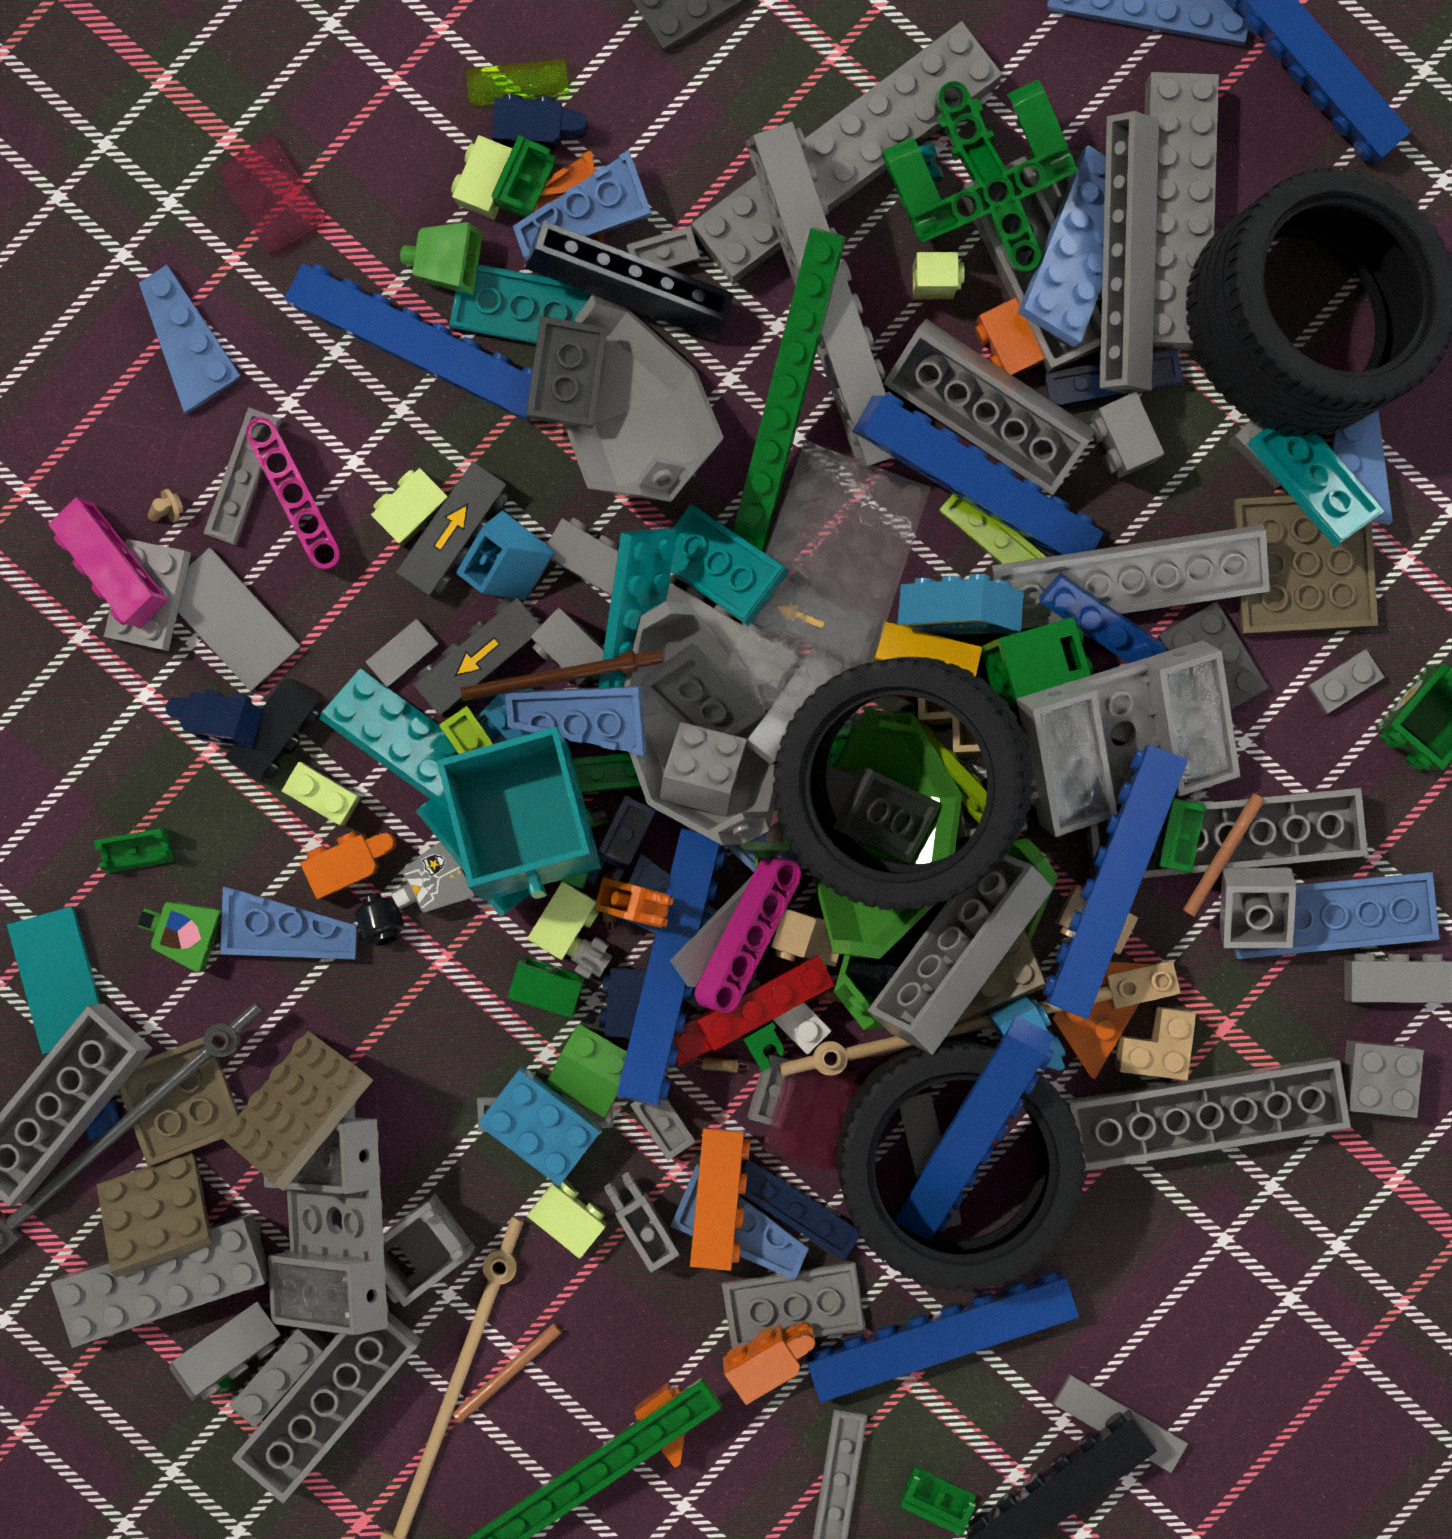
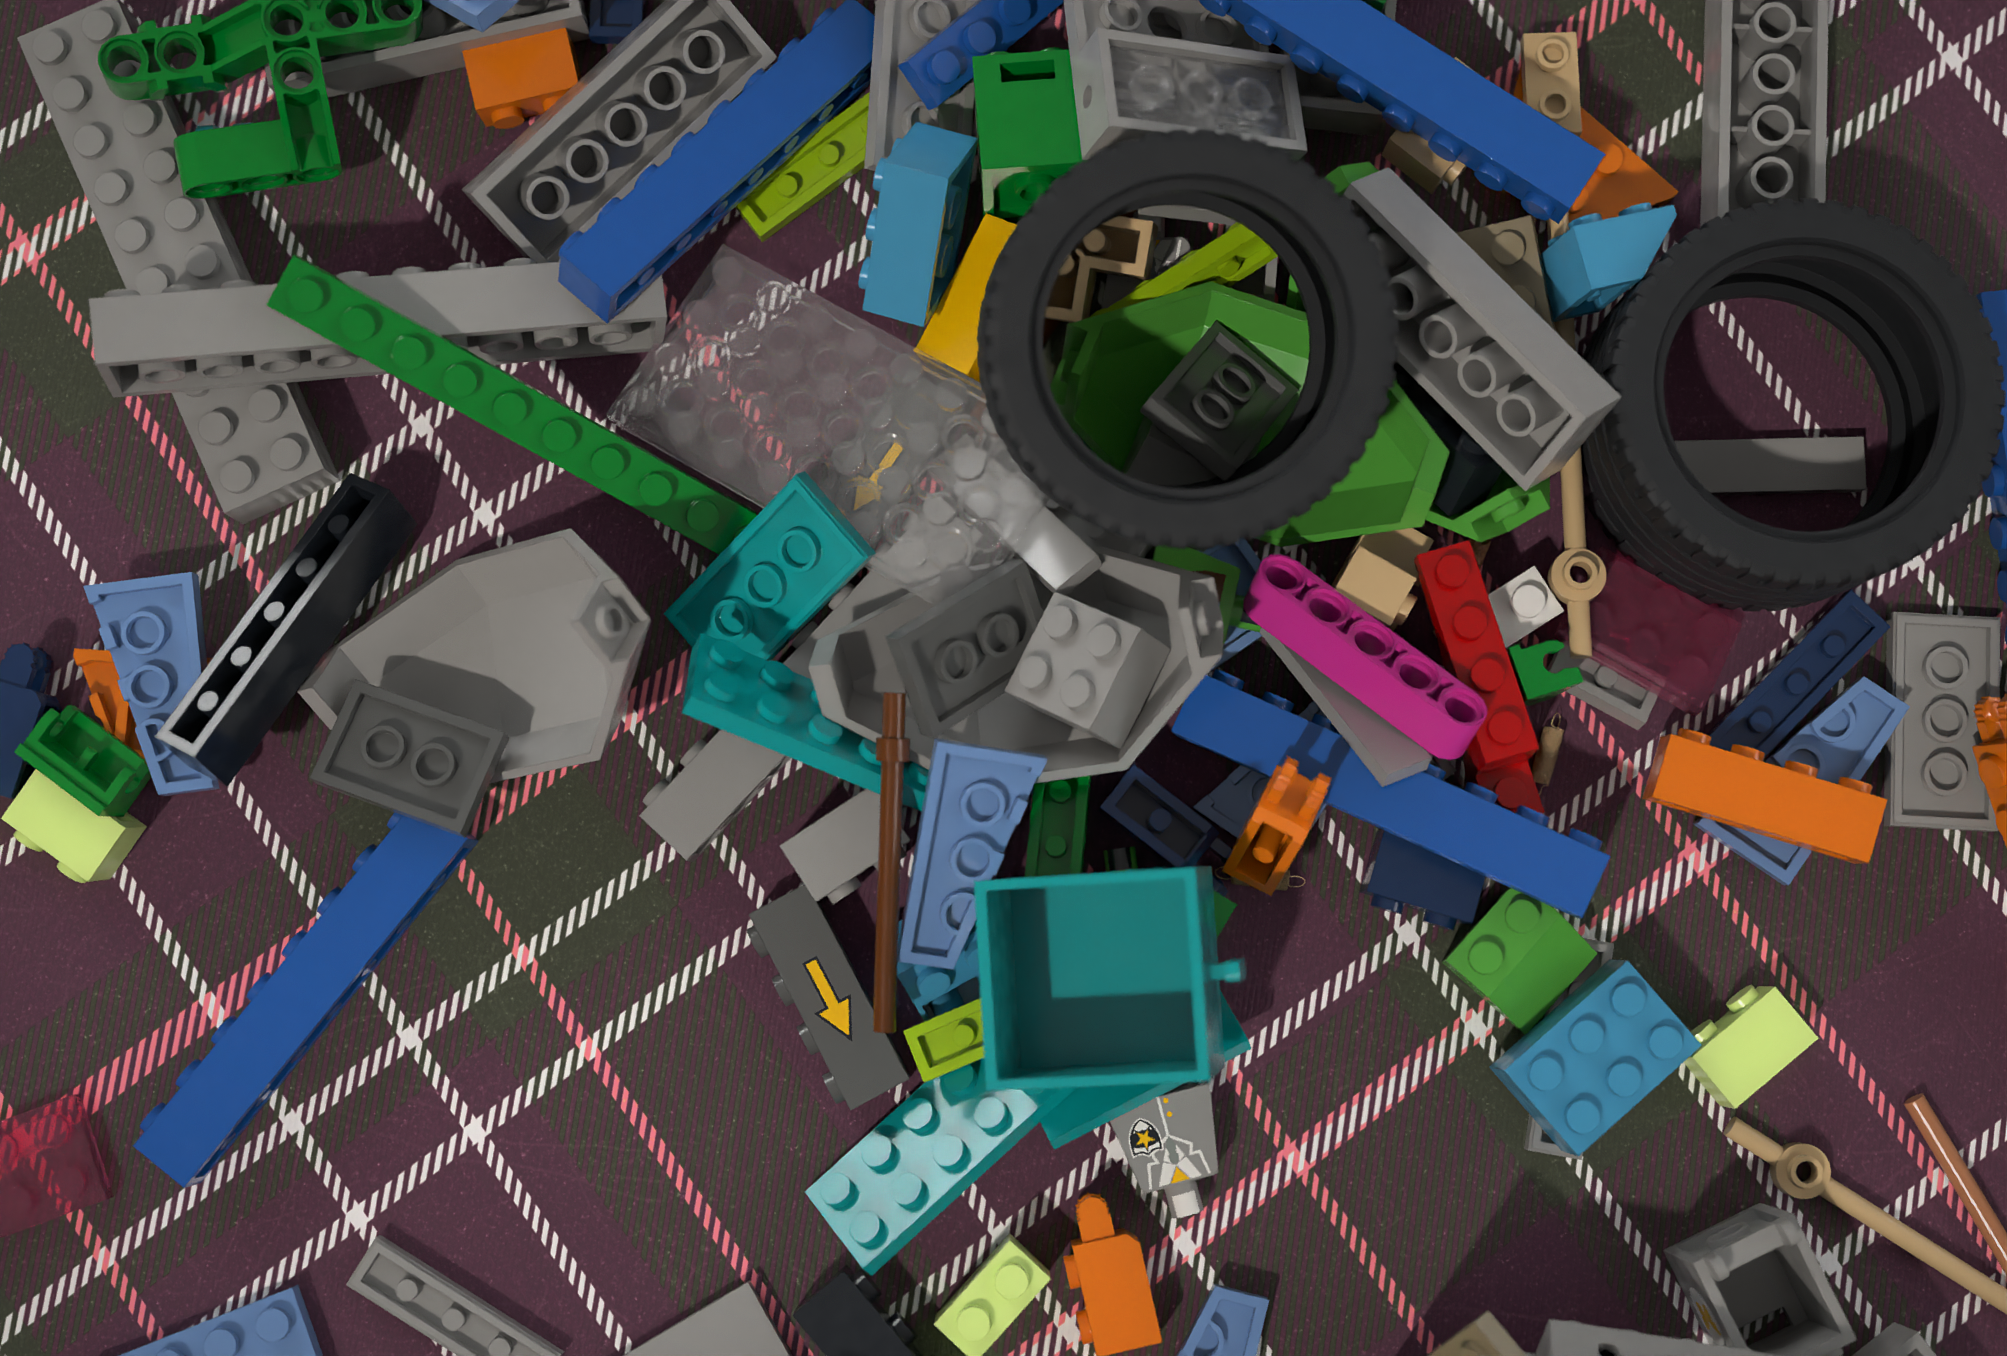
camera: 85 degrees left, 5 degrees down
(286, 478) = (473, 1241): dark pink beam -> none
(379, 920) = (1214, 1246): black head -> none
(402, 653) = (795, 1119): light grey tile -> none
(409, 506) = (564, 1055): yellowish green brick -> none
(446, 256) = (181, 912): bright green torso -> none
(453, 530) = (618, 994): dark grey brick -> none
(505, 559) = (683, 919): dark azure slope -> none
(511, 303) = (282, 827): teal tile -> none
(546, 986) = (1373, 1000): green hinge -> none
(563, 921) = (1276, 951): yellowish green brick -> none
(591, 957) = (1342, 919): light grey gear -> none
(643, 1225) = (1783, 925): light grey hinge -> none
(665, 1127) = (1637, 859): light grey plate -> none
(668, 249) = (257, 554): light grey plate -> none
(937, 275) = (398, 159): yellowish green brick -> none
(975, 1127) = (1742, 356): blue brick -> none
(1168, 1050) = (1658, 76): tan brick -> none

